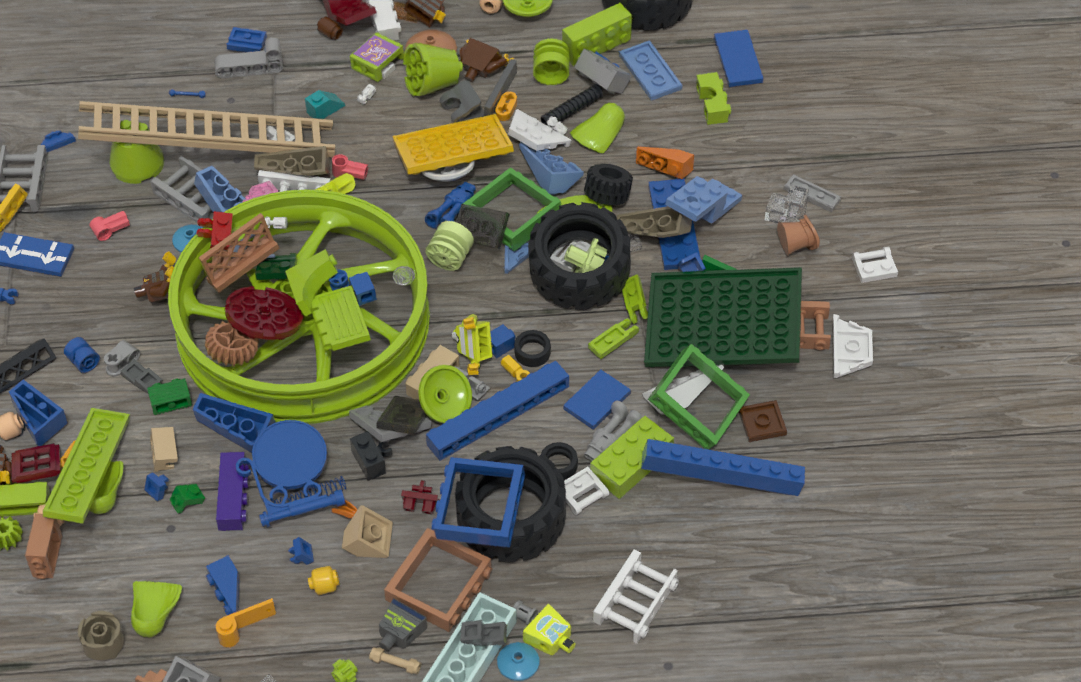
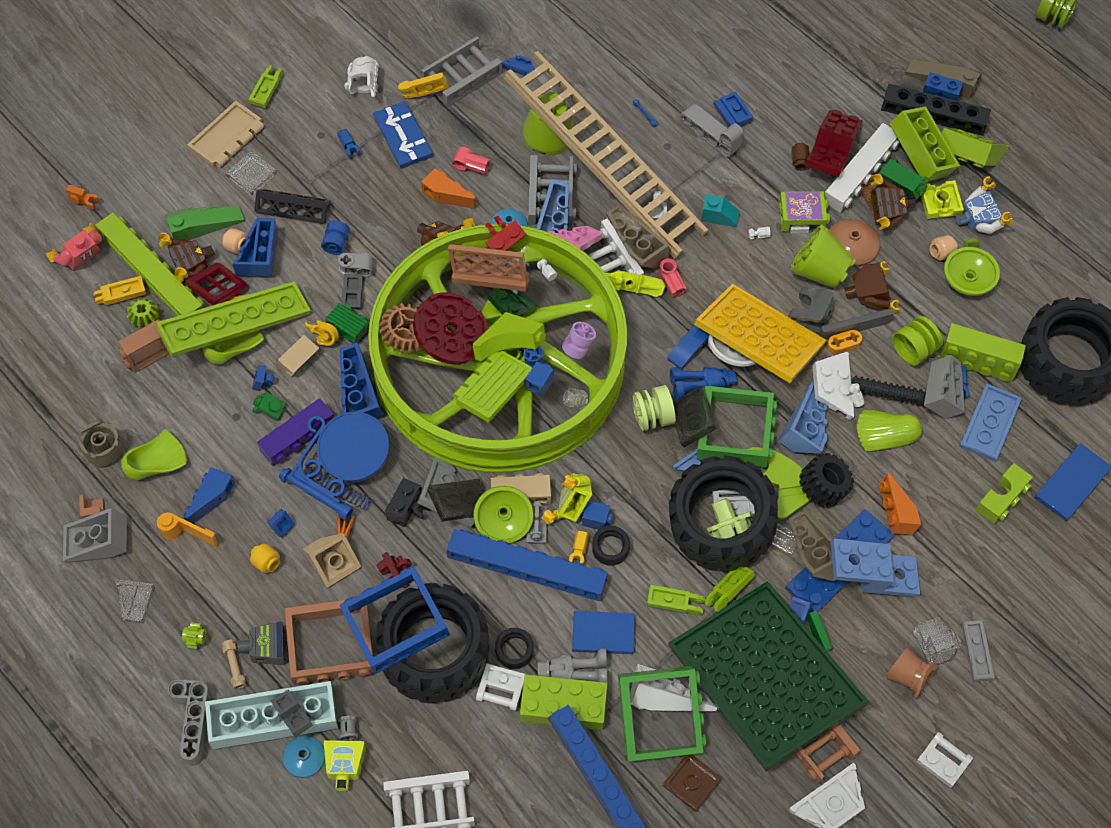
camera: 50 degrees right, 10 degrees up
(117, 257) = (444, 190): none -> orange slope
(162, 415) = (327, 333): none -> yellow piece
(361, 234) = (579, 340): none -> lavender wheel
(416, 194) = (687, 347): none -> blue slope

